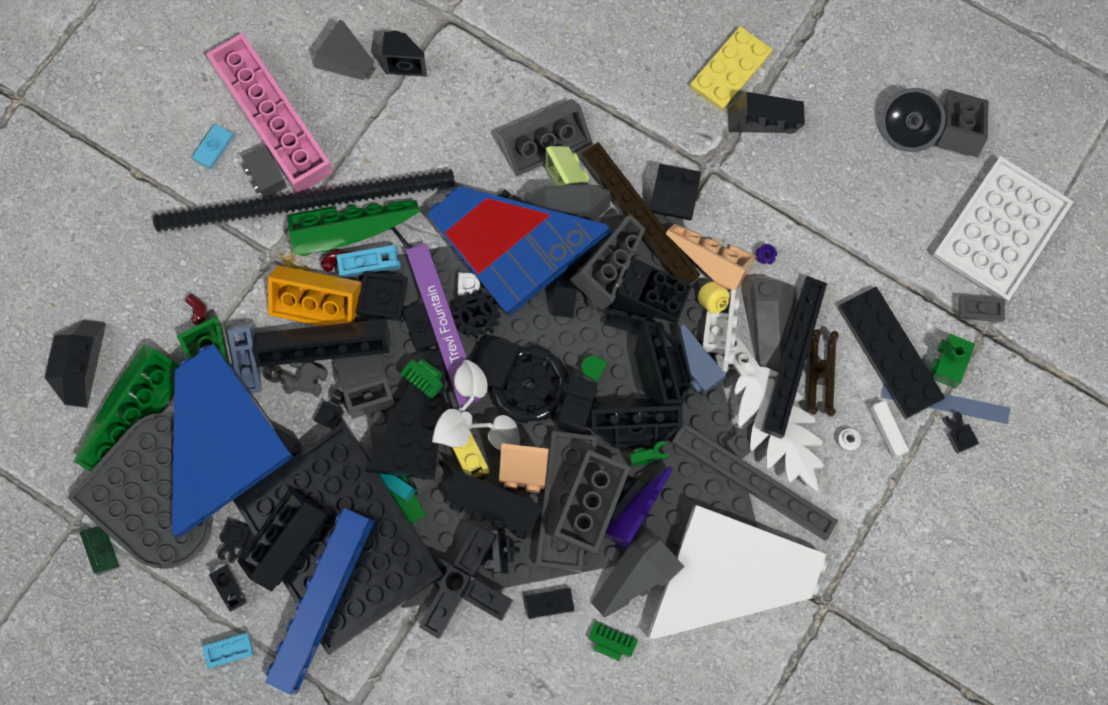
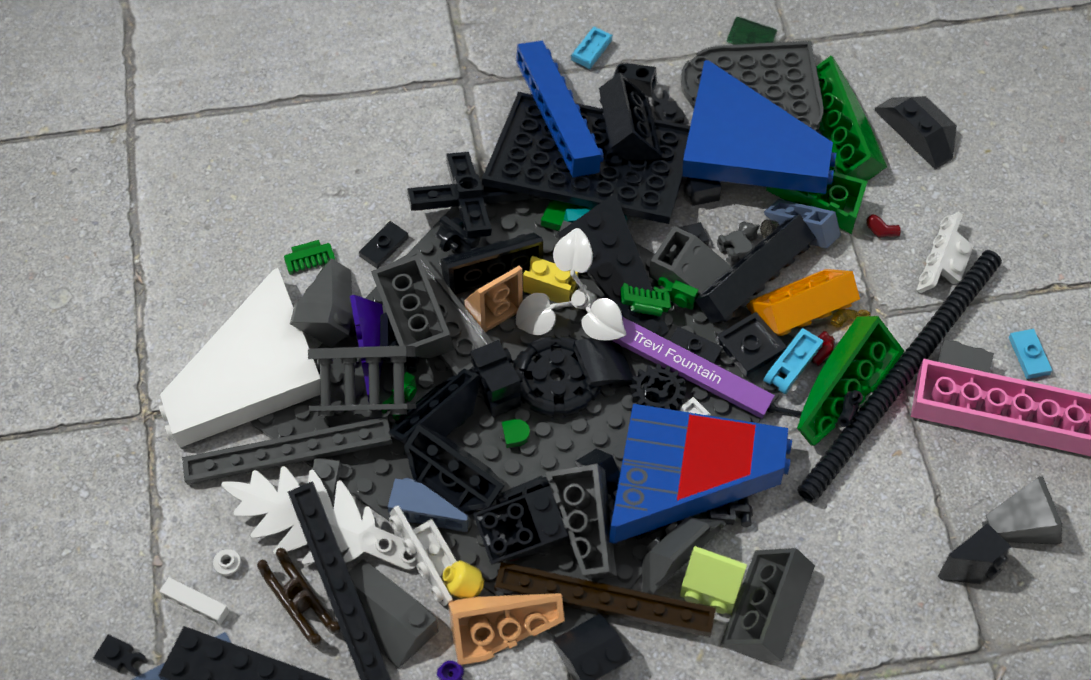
camera: 140 degrees right, 15 degrees down
(182, 251) = (947, 256): none -> white bracket
(366, 202) = (850, 407): none -> black arm
(391, 367) = (679, 293): none -> green plate
(658, 485) = (349, 358): none -> dark grey fence

